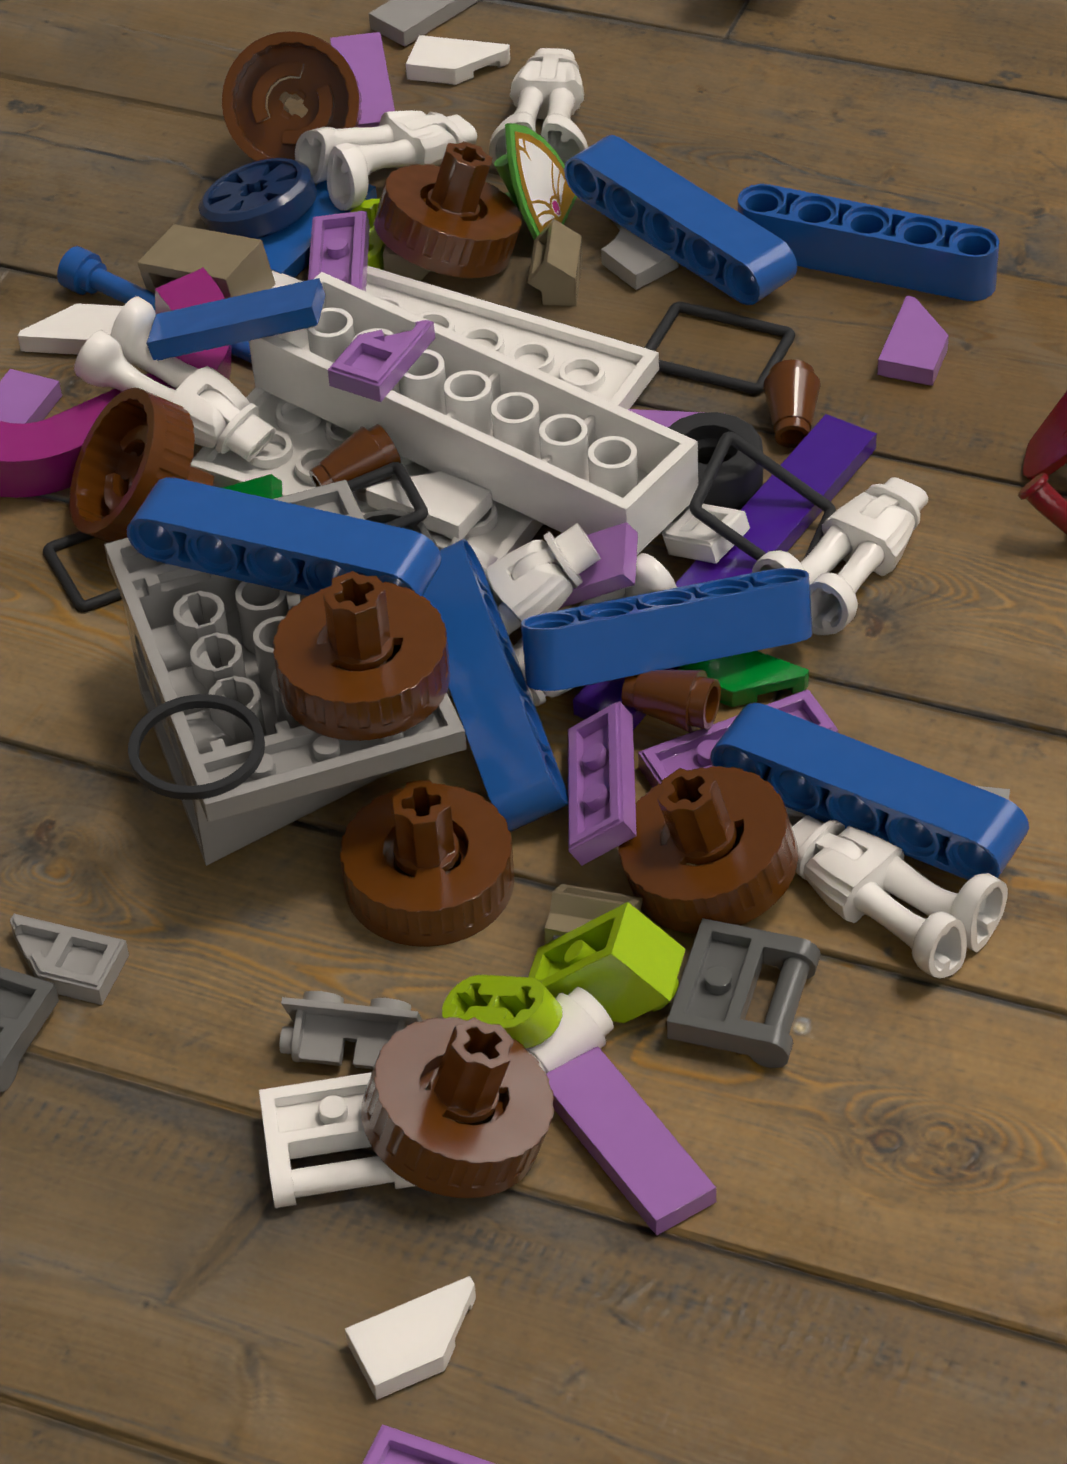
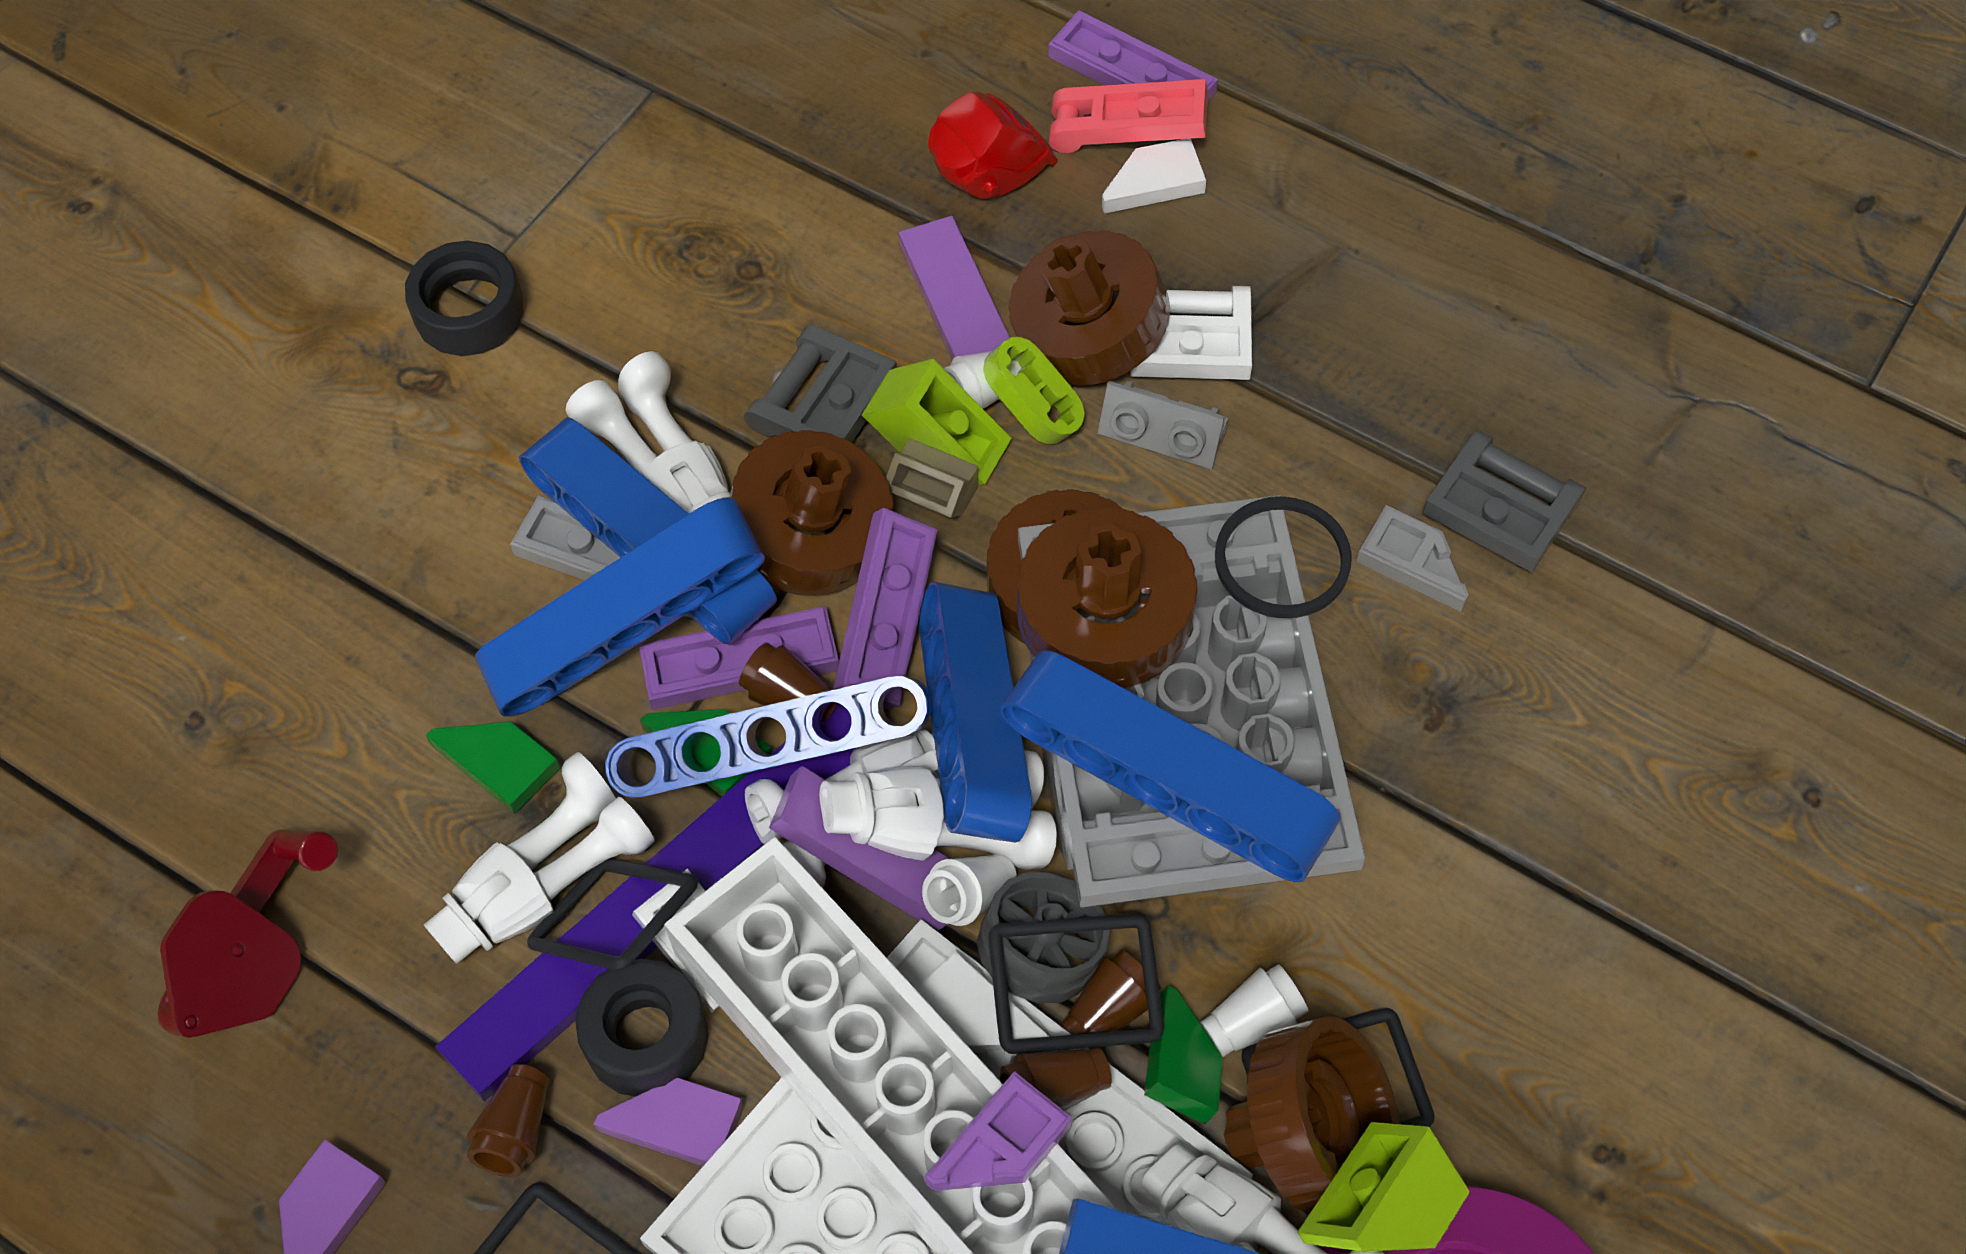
camera: 170 degrees left, 15 degrees up
(81, 388) = (1388, 1193): none -> lime slope
(459, 1388) = (1128, 113): none -> coral plate
(631, 1320) = (987, 146): none -> red helmet
(848, 687) = (619, 607): none -> blue beam
(931, 628) = (497, 759): none -> green tile

